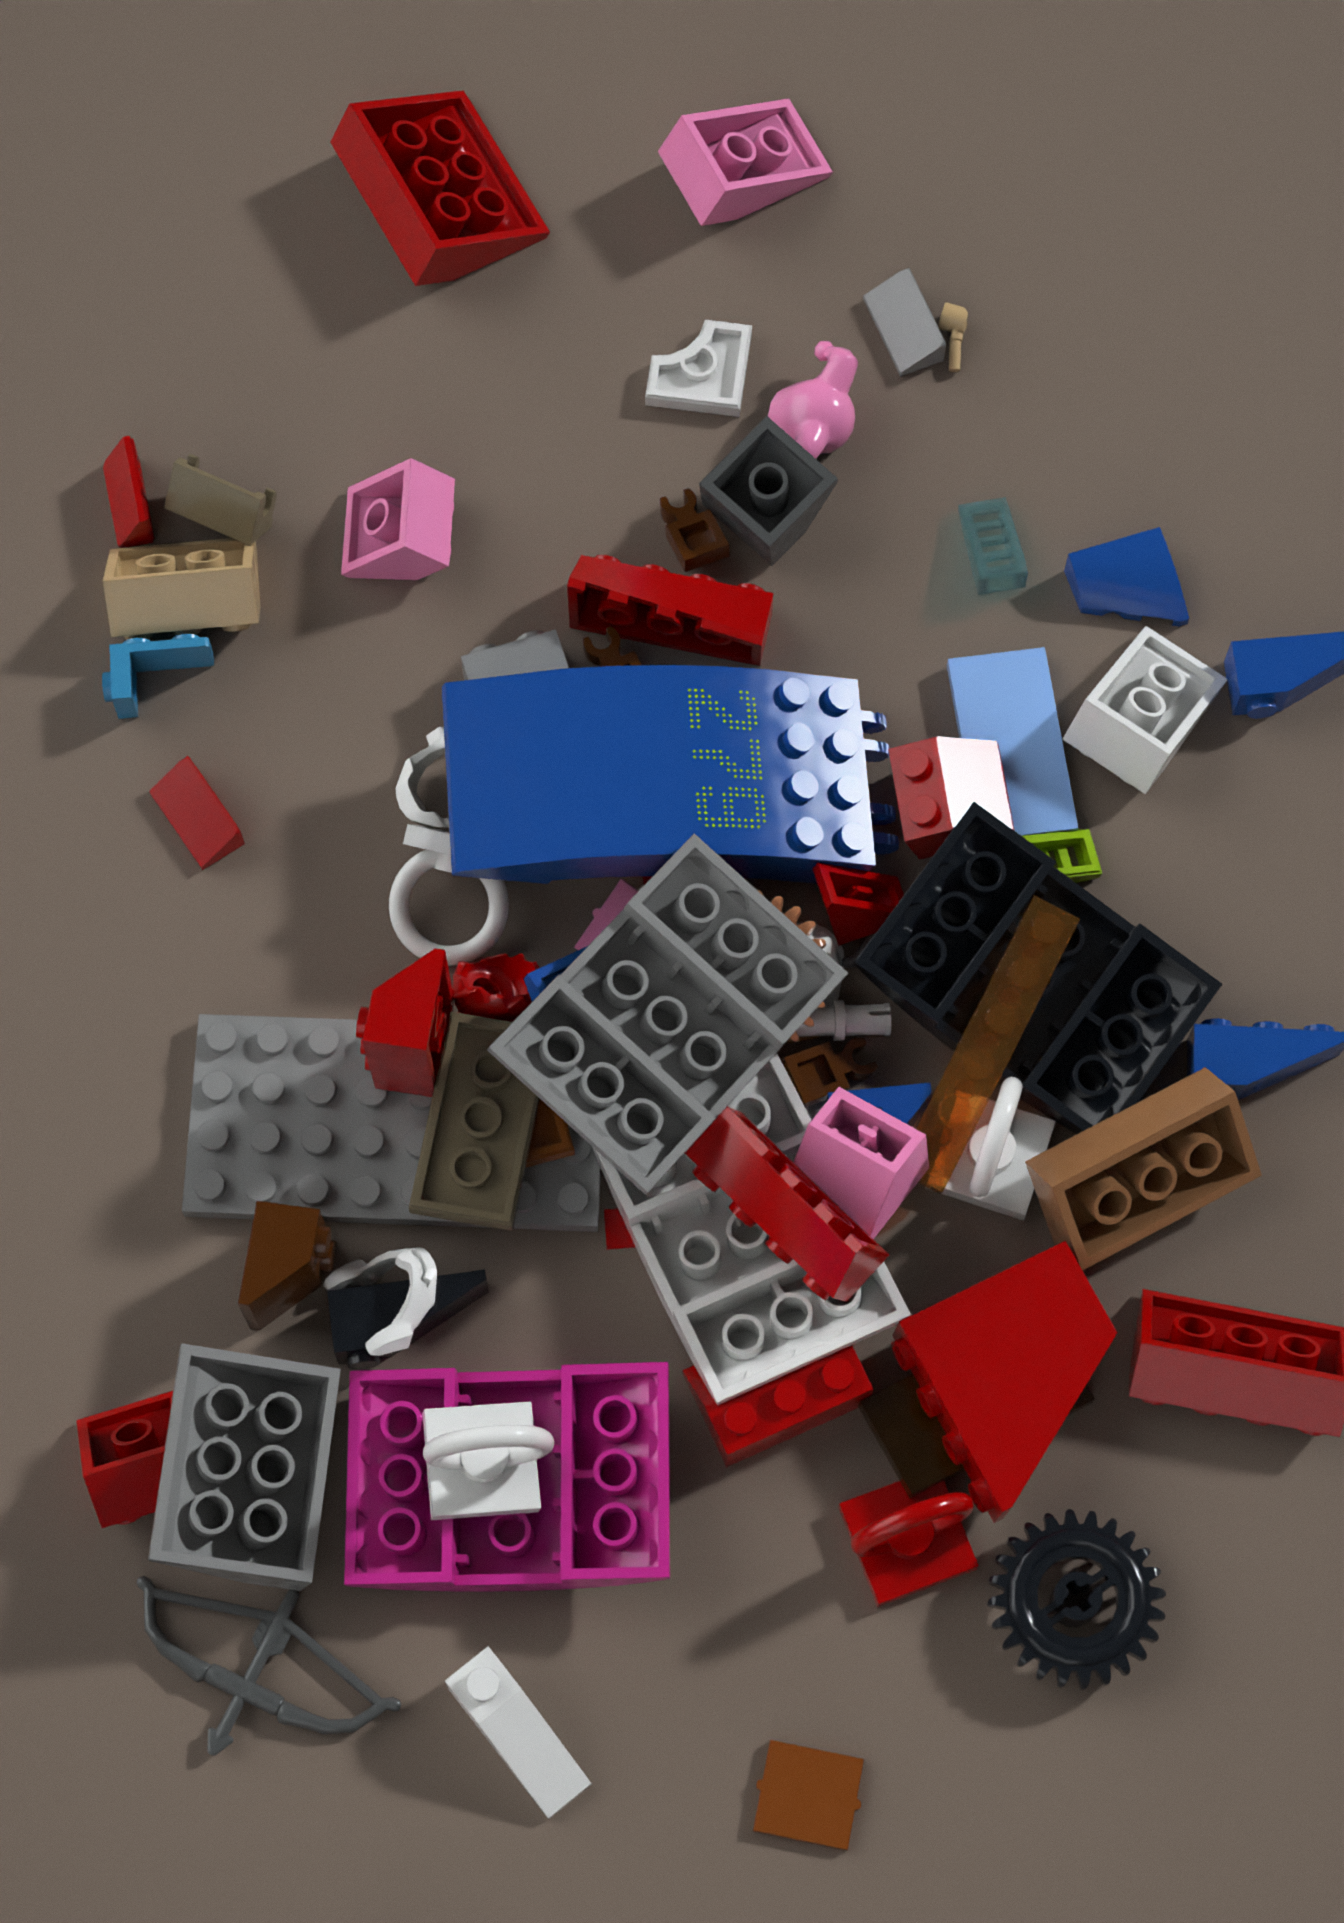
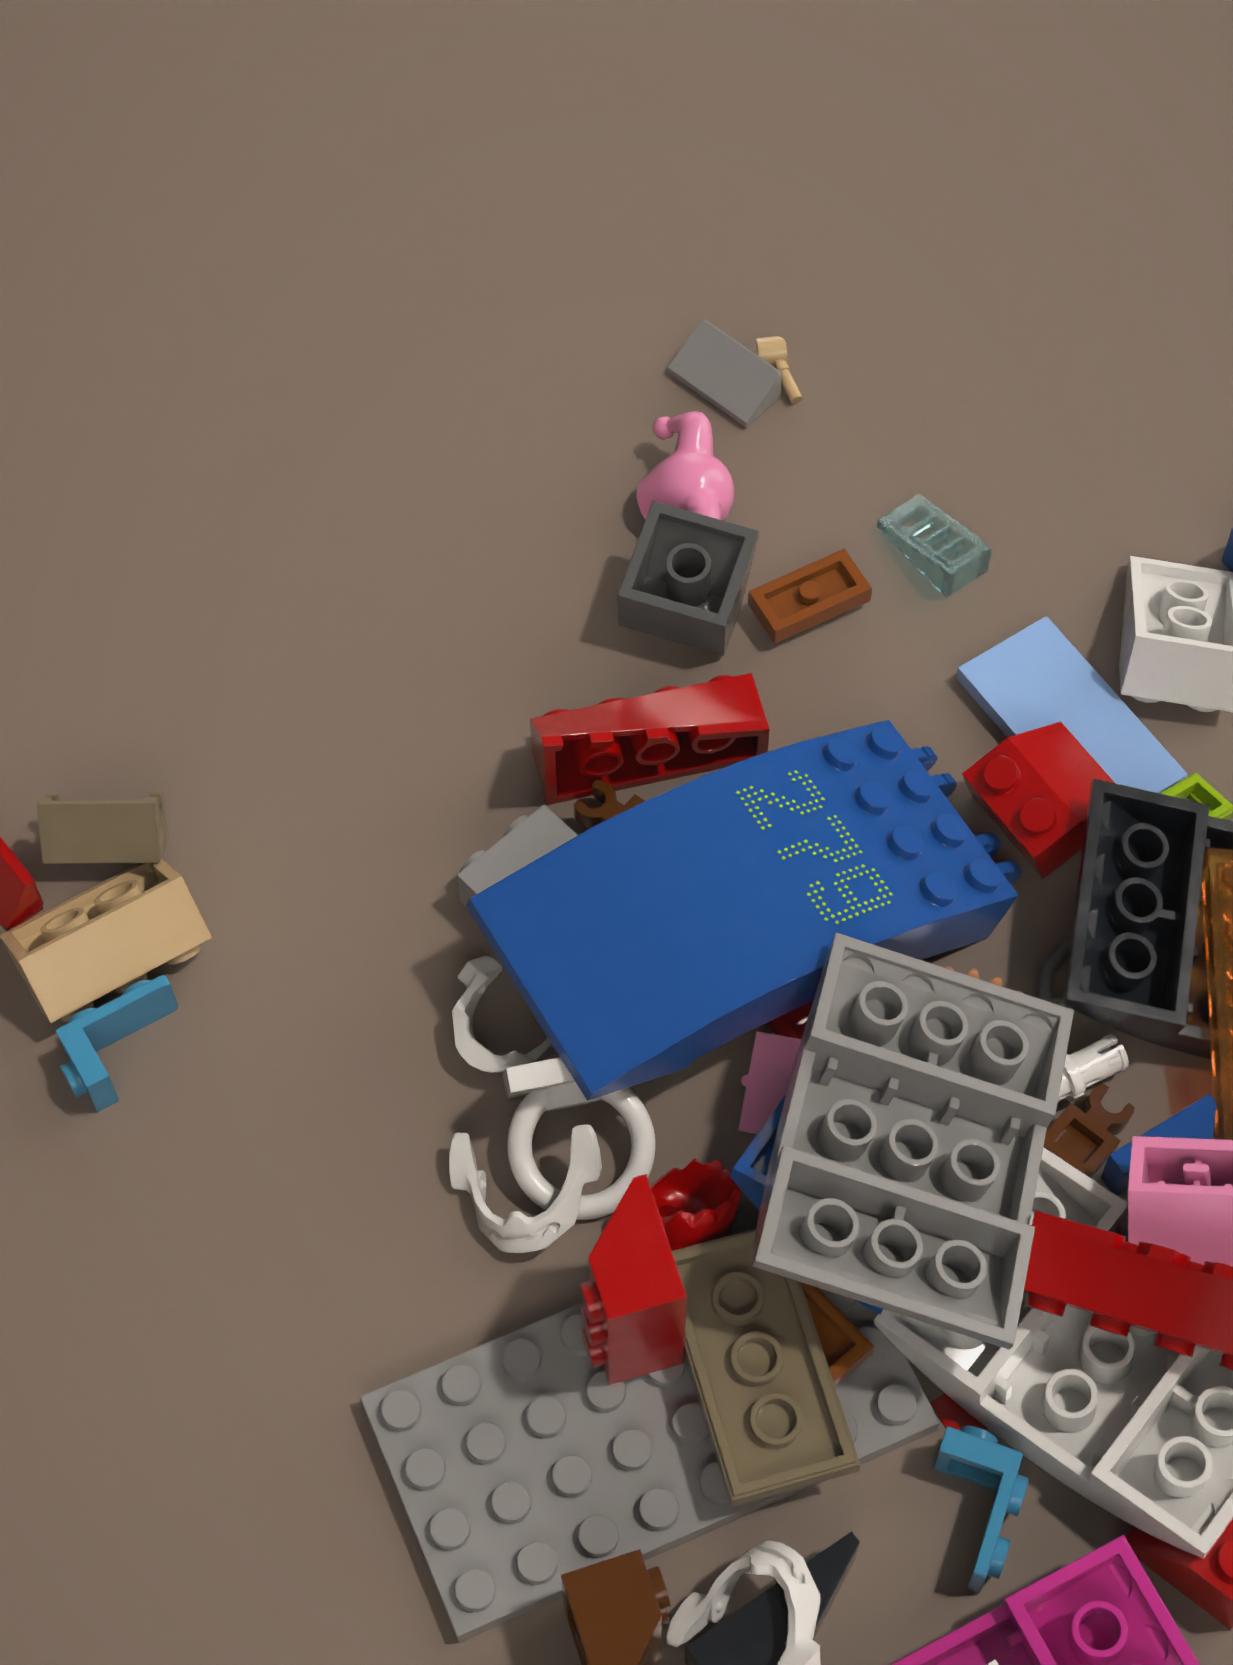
camera: 25 degrees left, 10 degrees down
(196, 814) = (242, 1173): red slope -> none
(385, 955) = (518, 1231): none -> white helmet
(399, 523) = (311, 773): bright pink slope -> none
(436, 184) = (172, 432): red slope -> none
(609, 1262) = (977, 1458): none -> dark azure bracket
(693, 536) = (629, 658): reddish brown plate -> none
(705, 374) = (550, 501): white tile -> none
(741, 159) = (475, 290): bright pink slope -> none
(856, 899) = (1015, 944): red slope -> none
(864, 546) = (809, 596): none -> dark orange plate
(1128, 579) = (1087, 519): blue slope -> none

